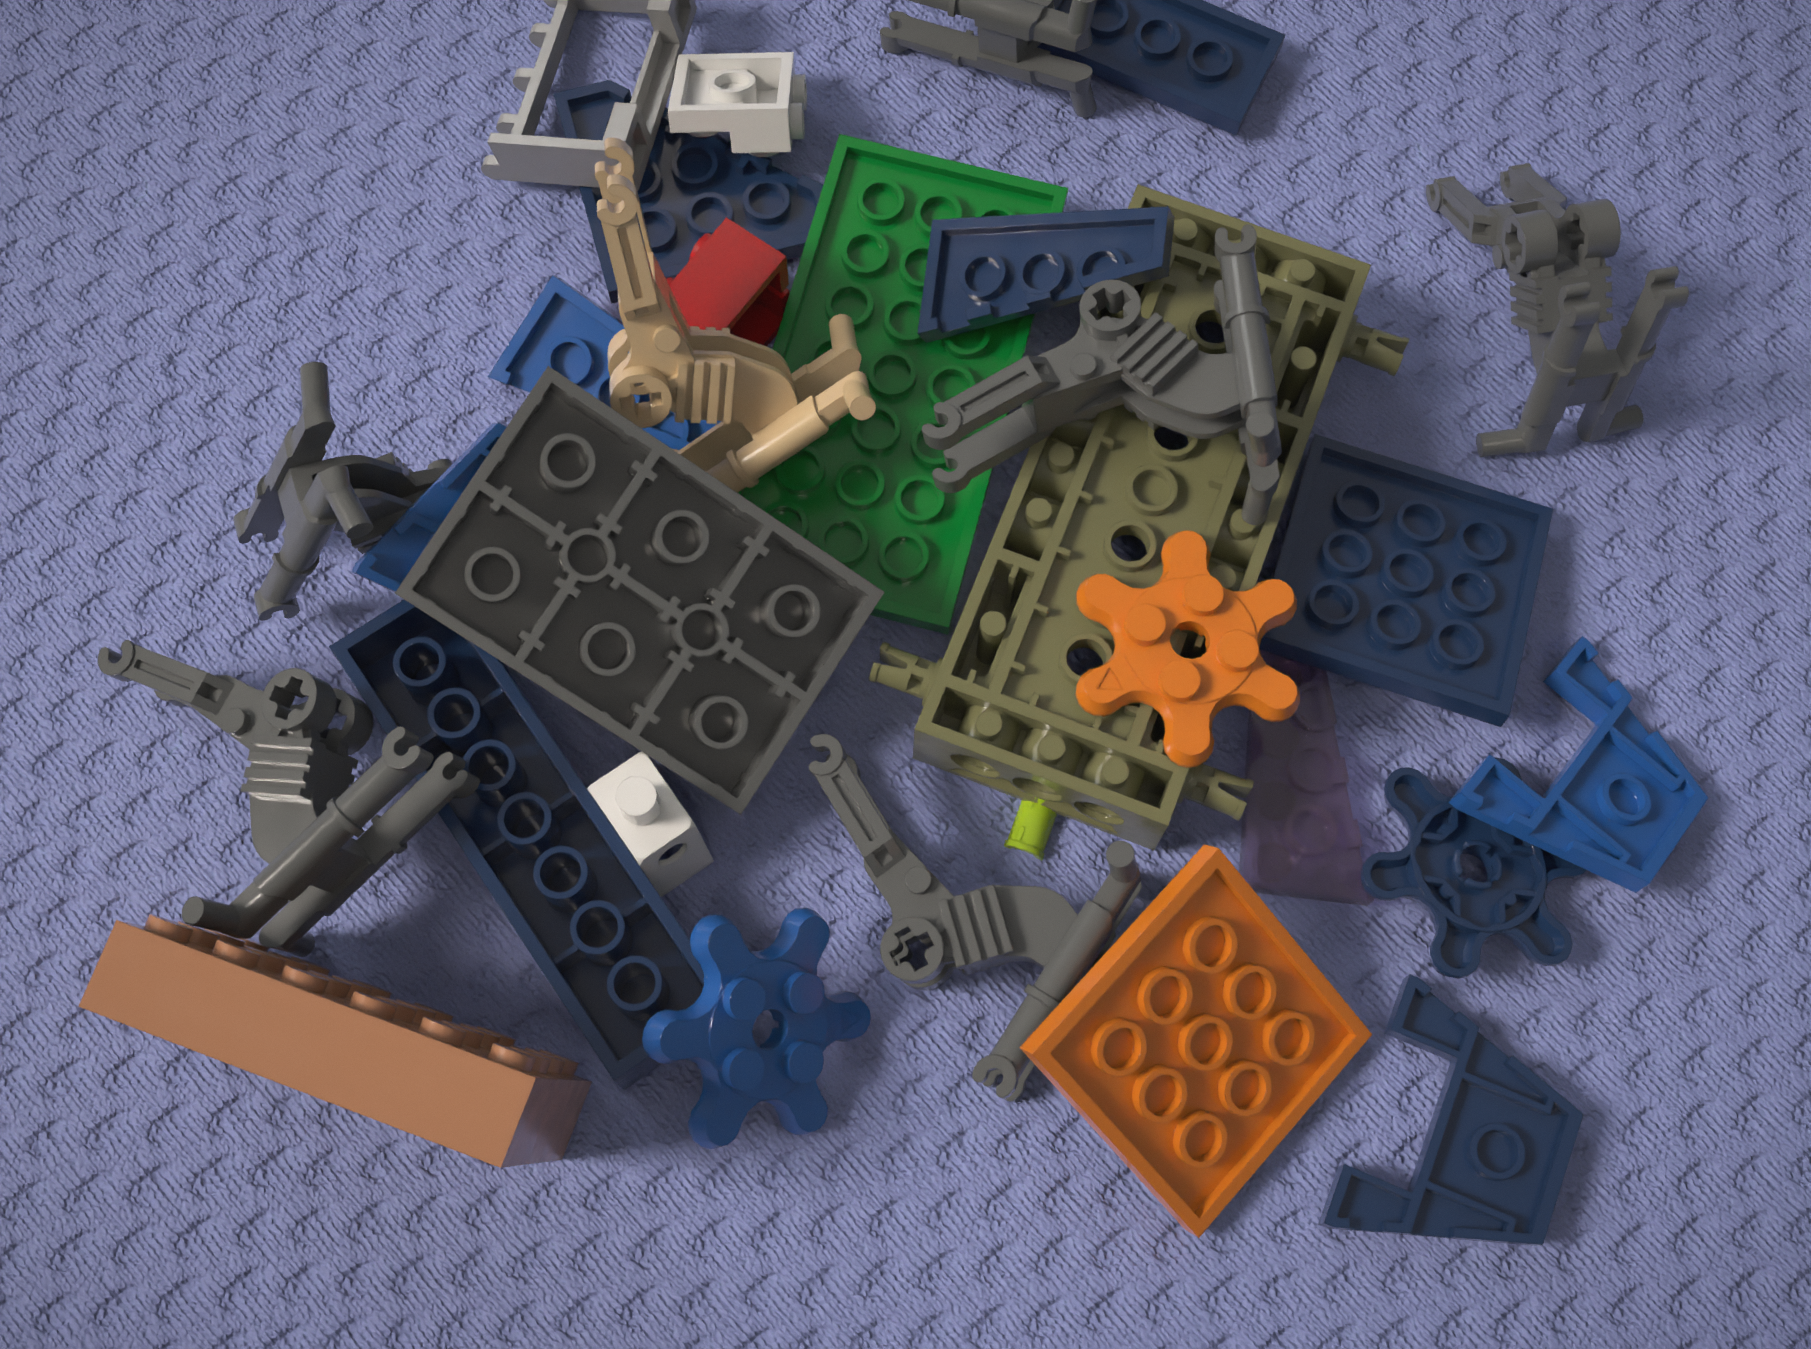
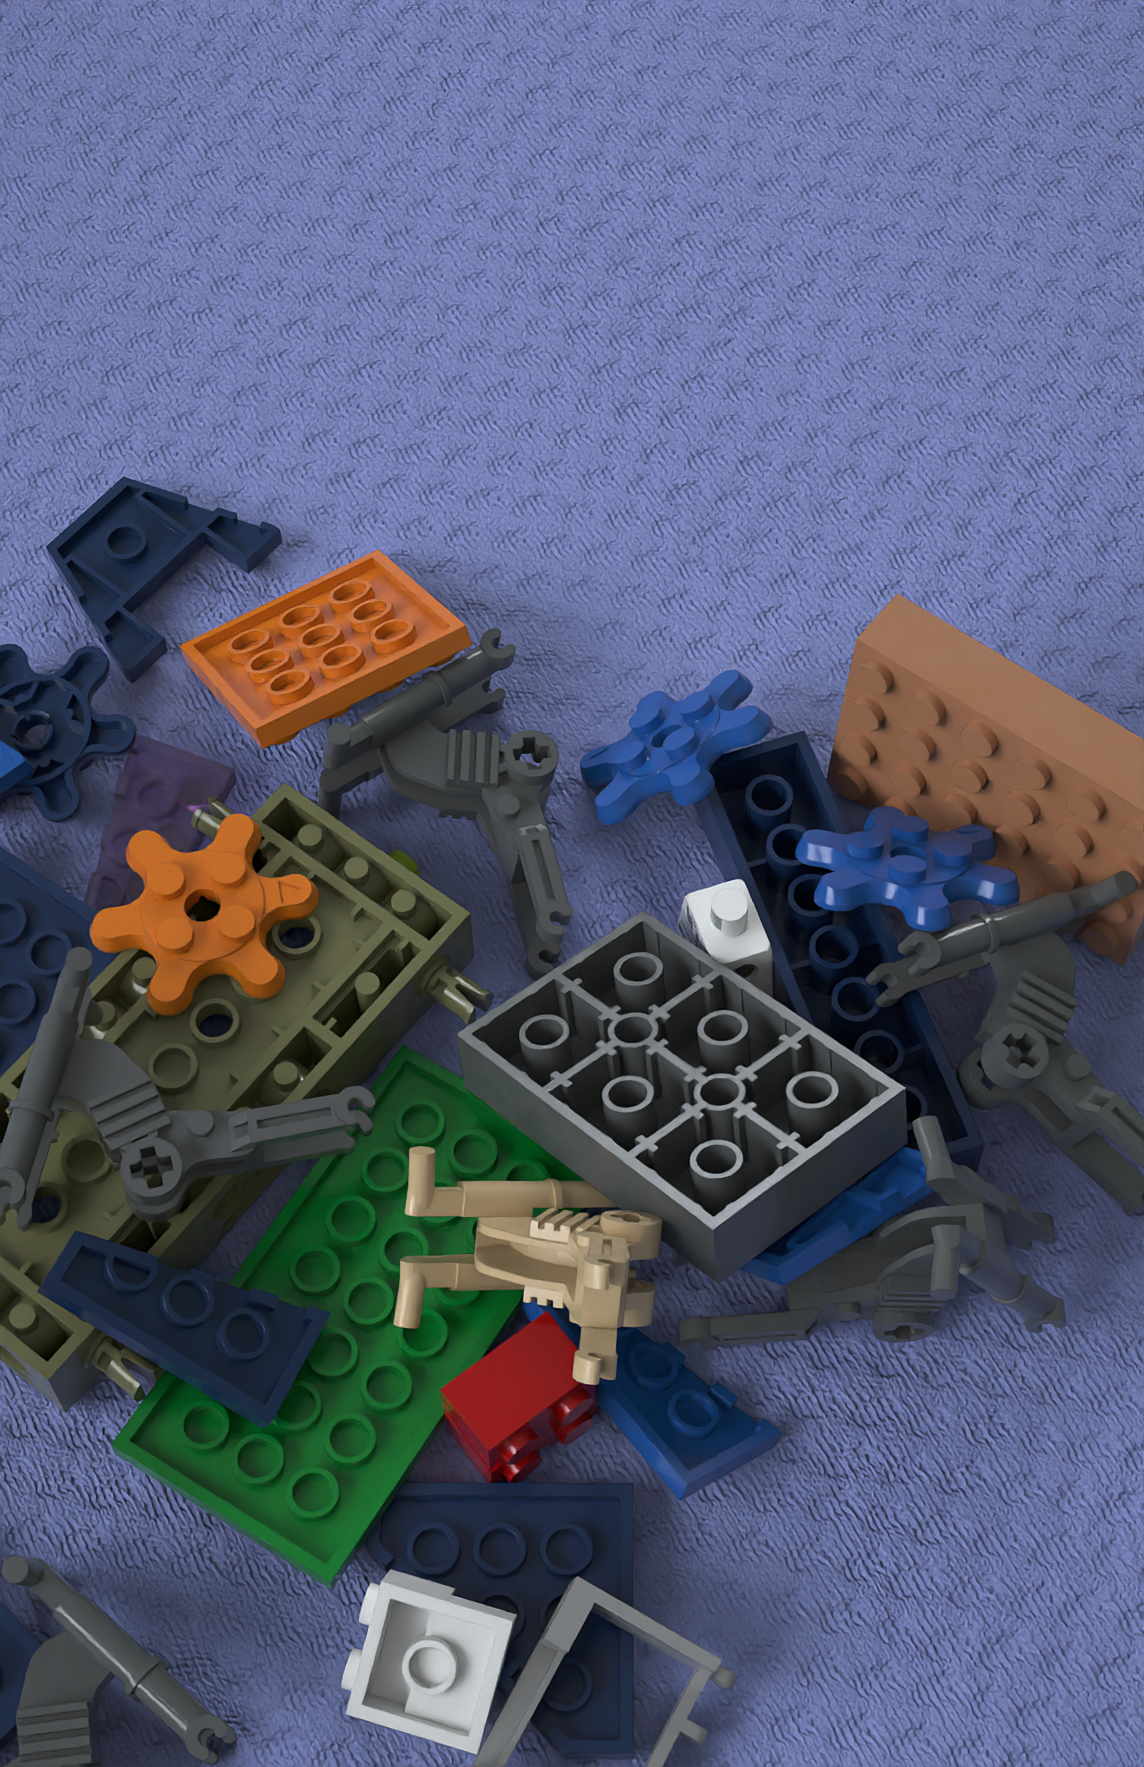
camera: 160 degrees left, 10 degrees down
(436, 843) = (907, 868): none -> blue plate

